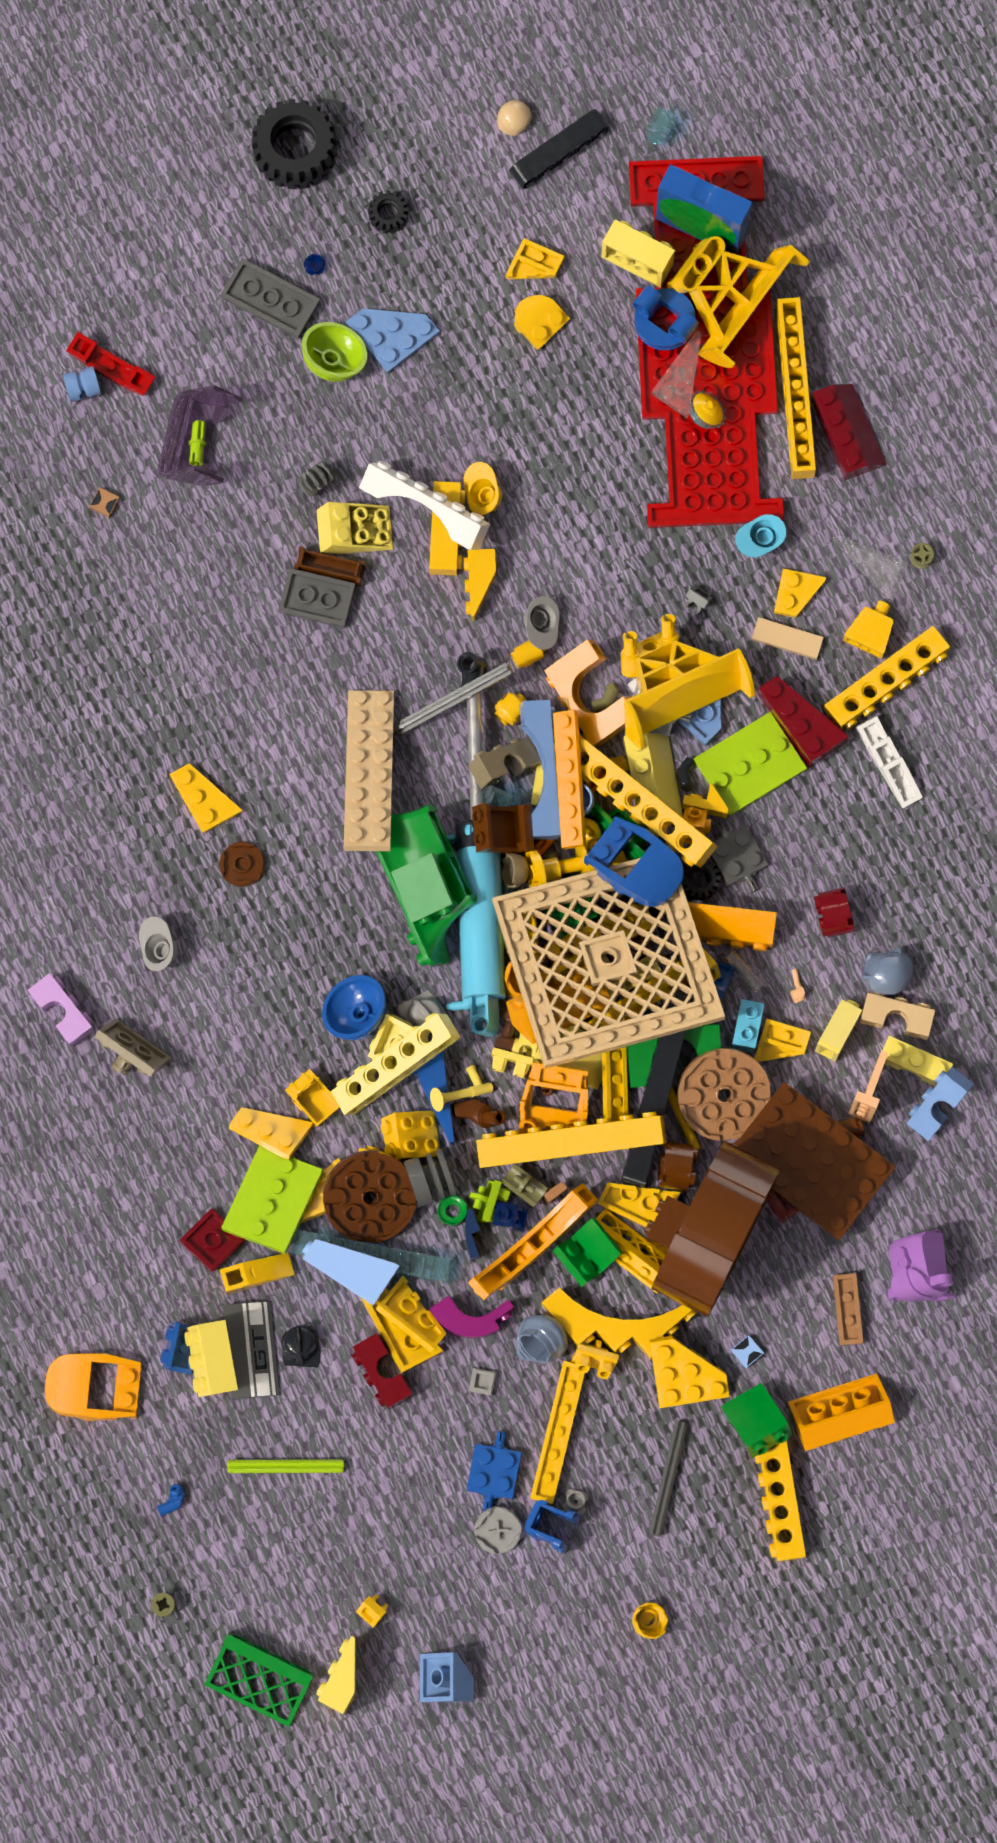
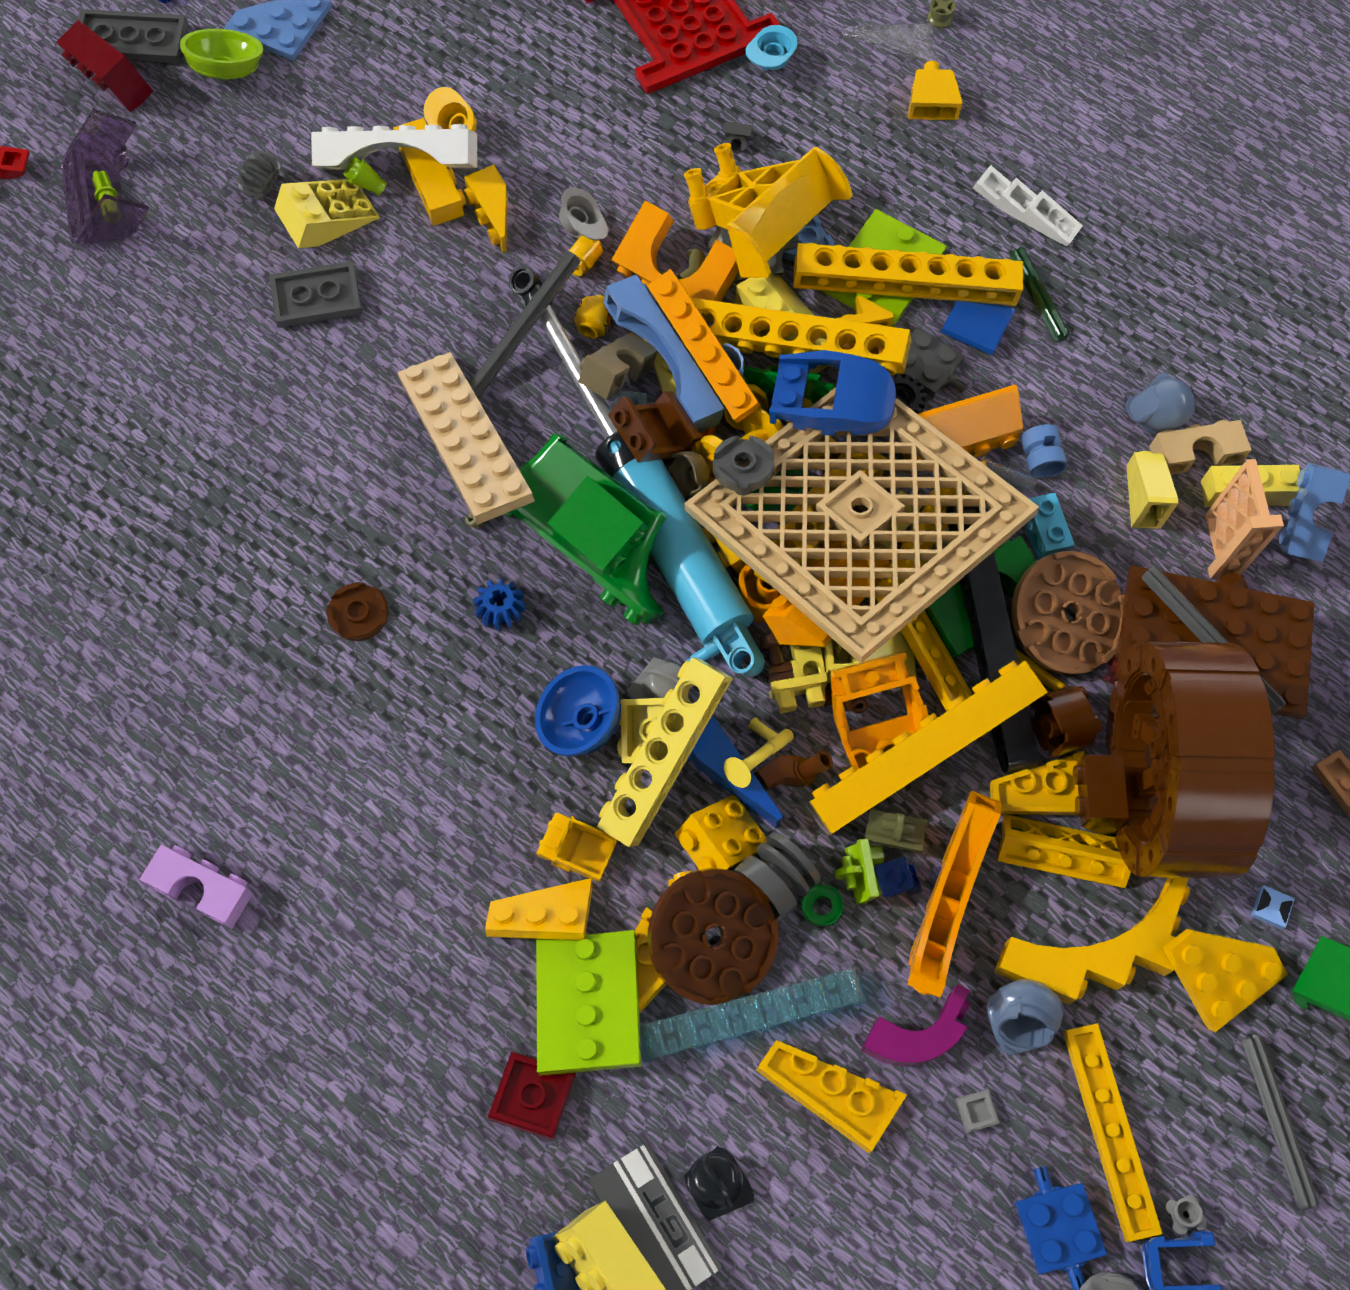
camera: 30 degrees left, 10 degrees down
(104, 502) = (20, 296): medium nougat tile -> none
(131, 1049) = (311, 893): dark tan plate -> none
(157, 944) = (290, 746): light grey piece -> none
(203, 799) = (276, 559): yellow wing -> none
(237, 326) = (104, 66): none -> dark red wedge
(256, 1273) = (612, 1111): yellow slope -> none
(330, 566) = (316, 254): reddish brown container -> none
(333, 900) = (488, 608): none -> blue gear
(355, 1270) = (744, 1042): light blue slope -> none
(390, 1390) = (869, 1185): dark red arch -> none
(393, 511) = (363, 175): none -> lime cone
(407, 1313) = (837, 1067): yellow wing -> none
(471, 1229) = (858, 914): dark blue slope -> none
(538, 900) = (743, 479): none -> dark grey plate
(555, 1192) = (936, 822): medium nougat tile -> none
(588, 1252) = (1020, 873): green bracket -> none
(594, 1357) = (1103, 1005): yellow hips -> none
(682, 775) = (819, 306): black arm -> none
(762, 794) = (956, 277): none -> yellow brick
(777, 974) = (1044, 451): none -> medium blue wheel
(781, 1041) = (1095, 527): yellow wing -> none
(787, 638) = (852, 136): tan tile -> none
(795, 841) = (978, 324): none -> blue slope
(796, 591) = (833, 92): yellow wing -> none
(797, 994) = (1077, 472): light nougat hand -> none
(802, 723) = (917, 201): dark red wedge -> none
(802, 1159) = (1196, 621): none -> dark grey axle
(835, 912) = (1070, 368): dark red brick -> none
(855, 839) = (1041, 296): none -> dark green axle
(928, 640) = (976, 131): yellow brick -> none

